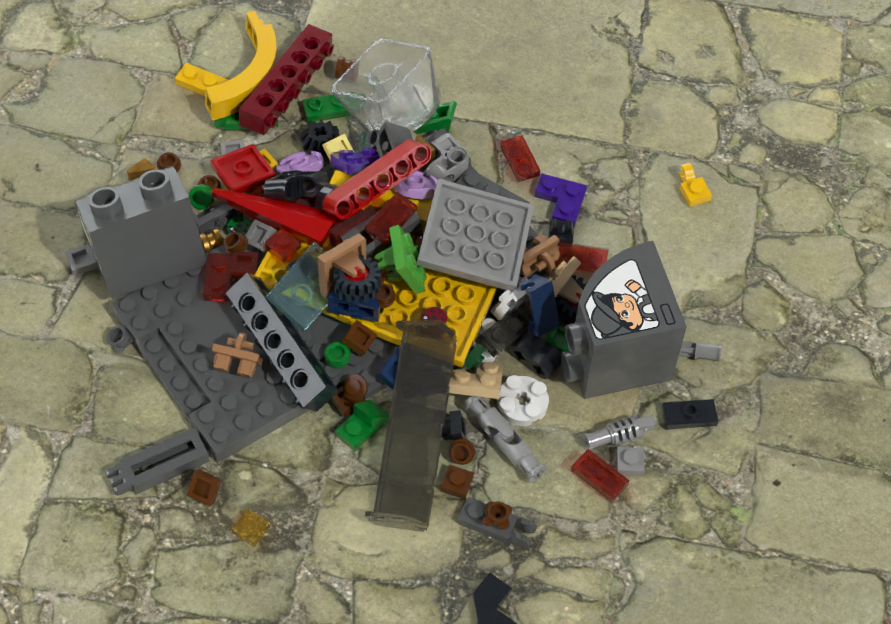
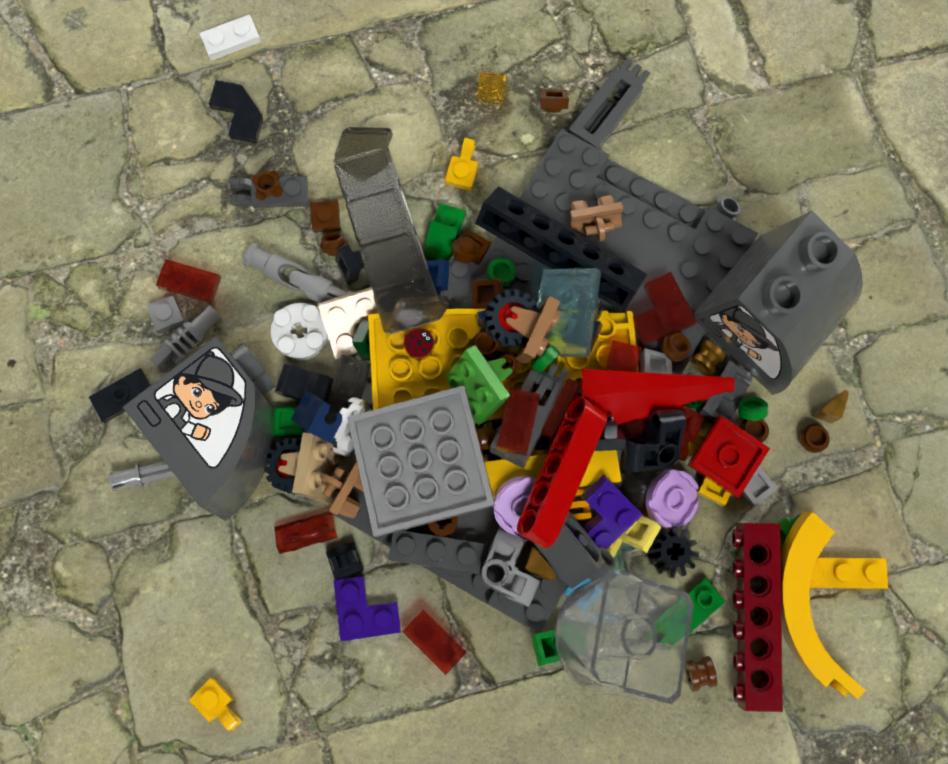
camera: 155 degrees right, 20 degrees up
(318, 468) = (462, 169): none -> yellow plate

